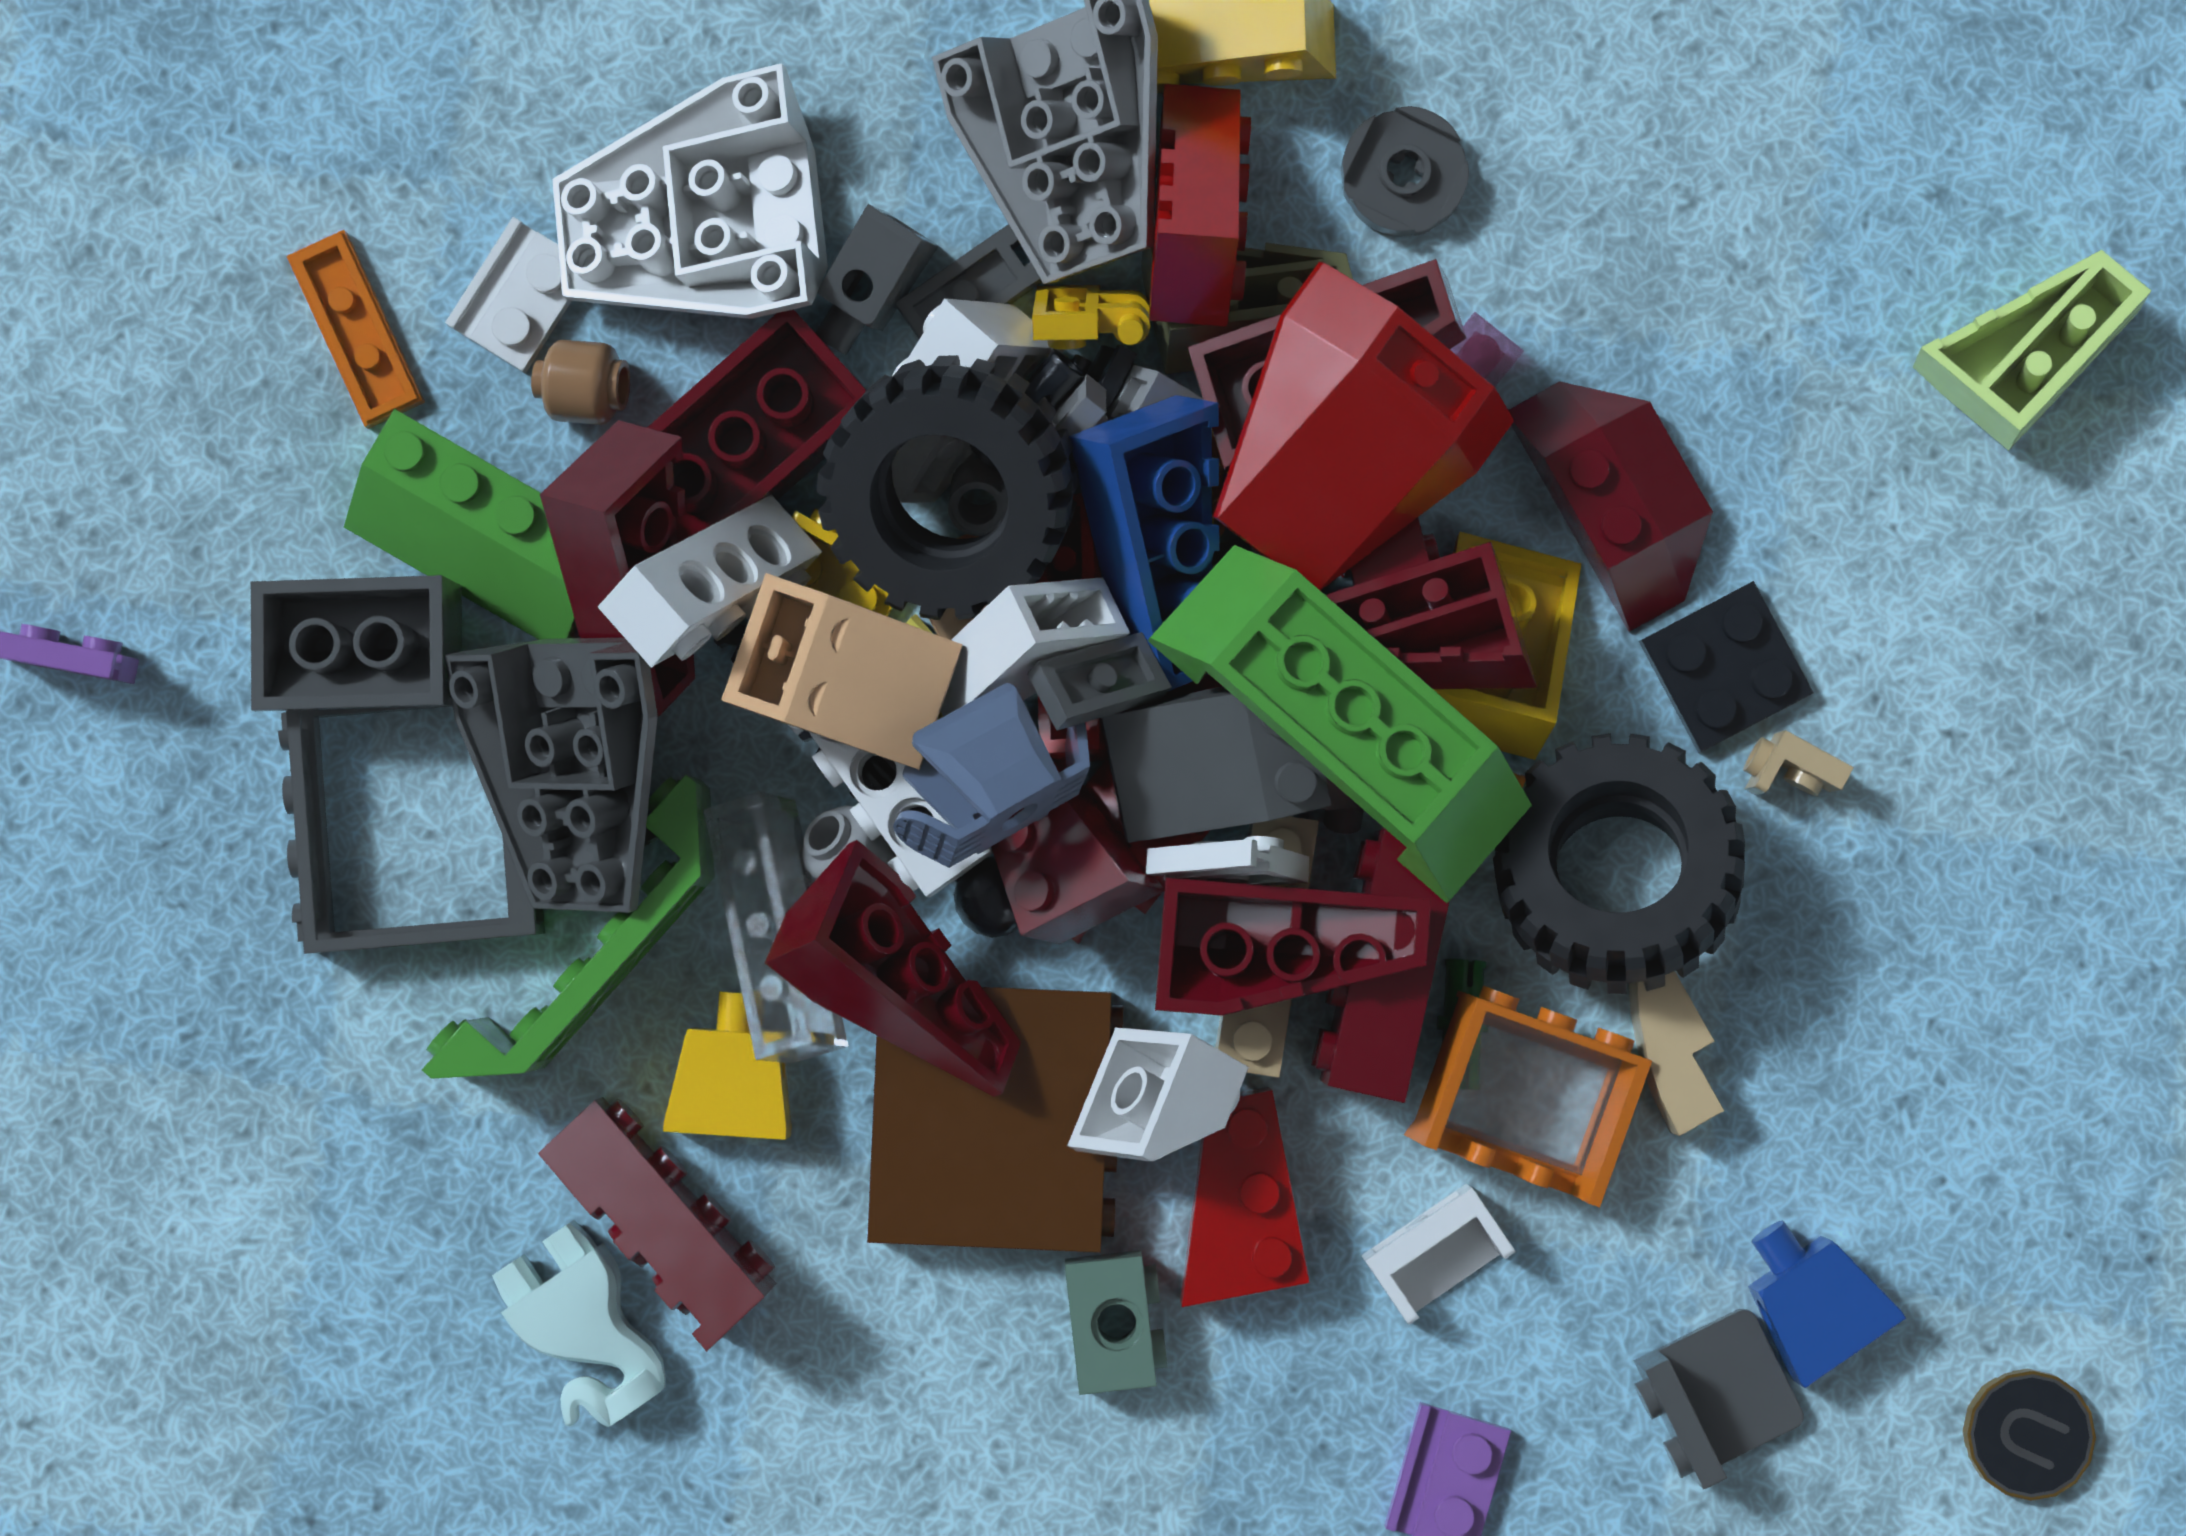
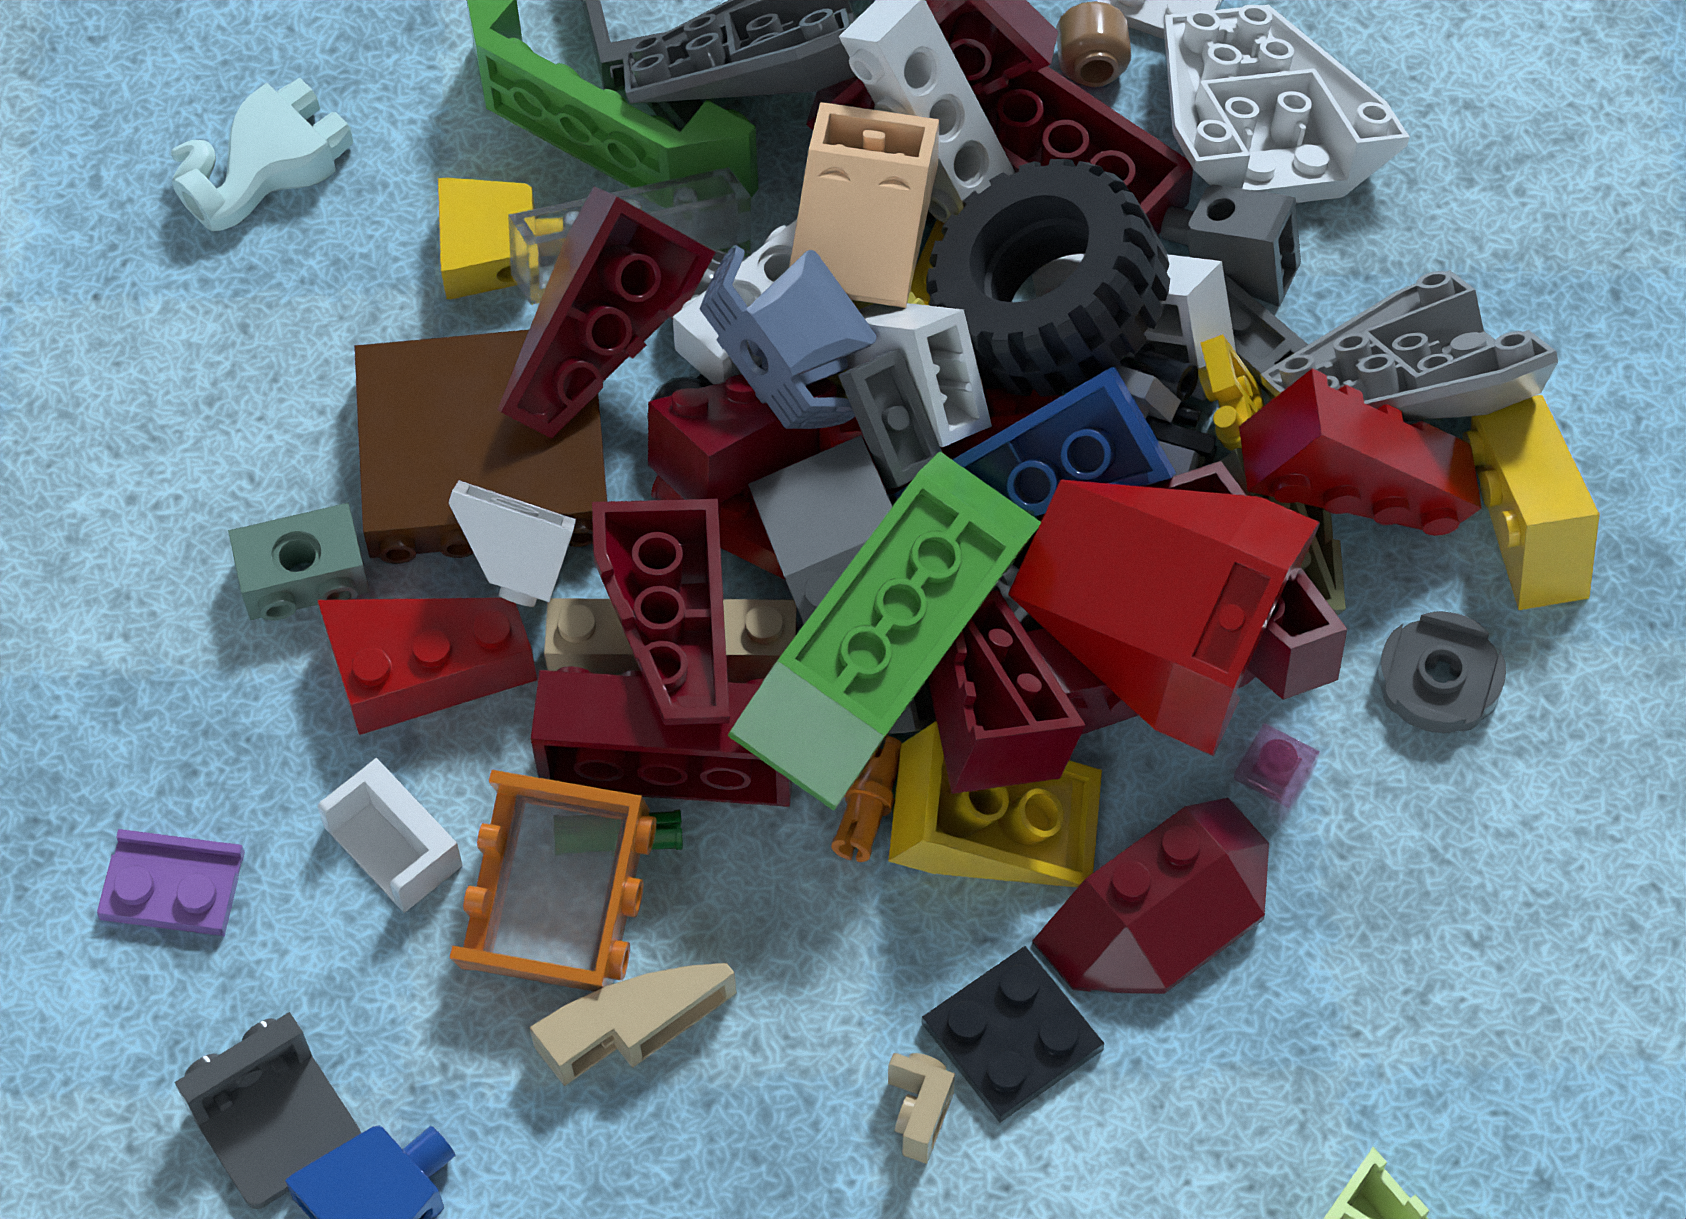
camera: 80 degrees right, 25 degrees down
(659, 1218) = (354, 196): dark red wedge -> none
(1246, 861) = (743, 578): white plate -> none
(1638, 785) = (767, 983): black tyre -> none

